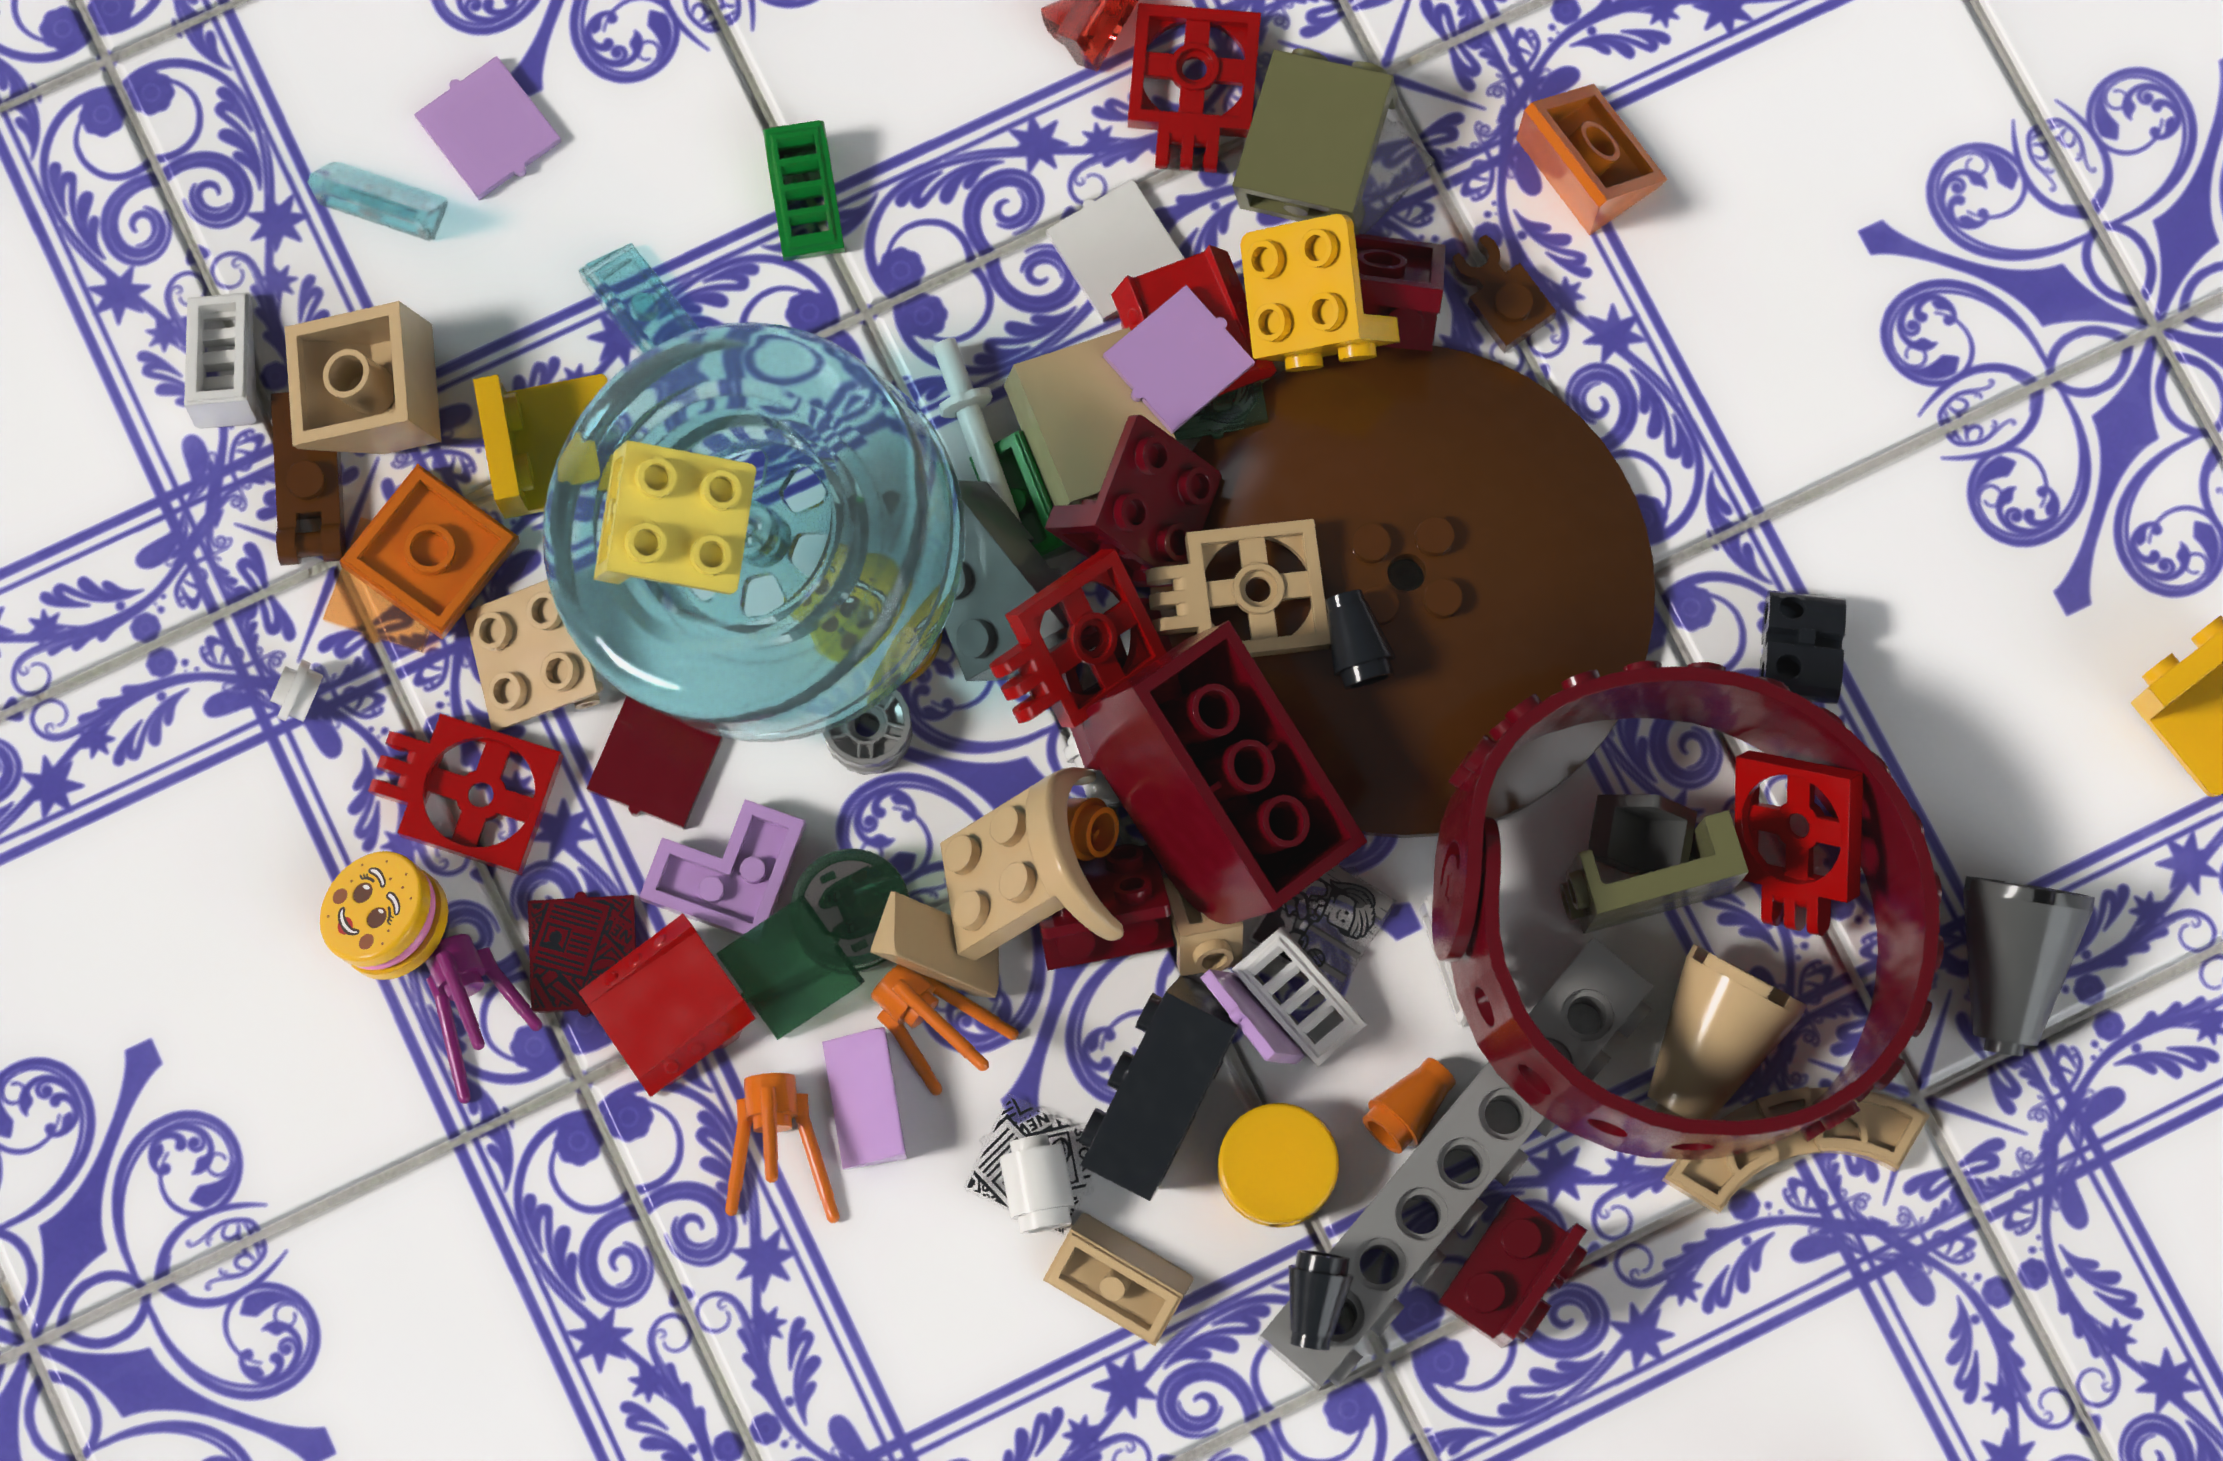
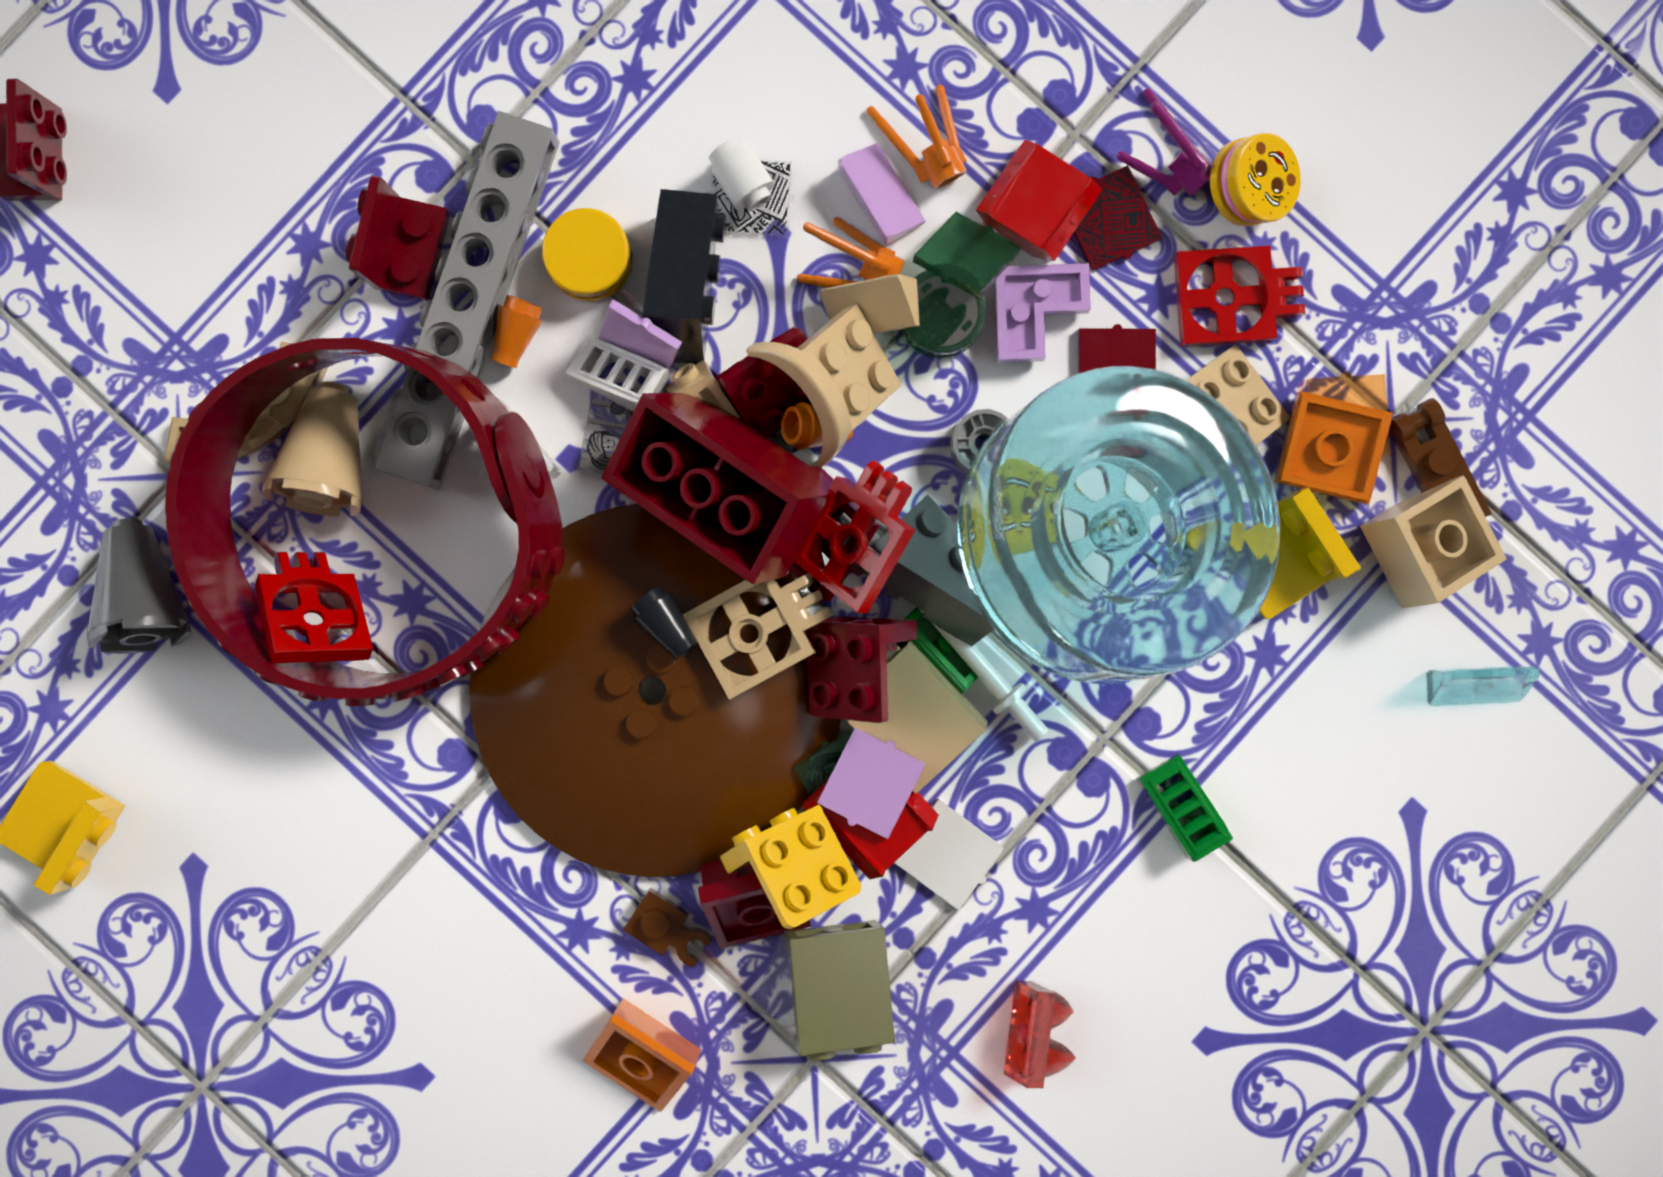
camera: 155 degrees right, 10 degrees up
(227, 398) = (1514, 515): white slope -> none
(296, 691) = (1381, 313): white plate -> none
(487, 127) = (1425, 767): lavender piece -> none
(635, 298) = (1263, 679): clear light blue slope -> none
(675, 518) = (1178, 492): light yellow bracket -> none
(1118, 1278) = (665, 144): tan slope -> none
(1189, 125) = (934, 964): red piece -> none
(1317, 1296) = (520, 162): black cone -> none
(1641, 832) = (423, 574): dark grey panel -> none
(1714, 872) = (362, 560): olive panel -> none
(1804, 644) = (362, 753): black piece -> none

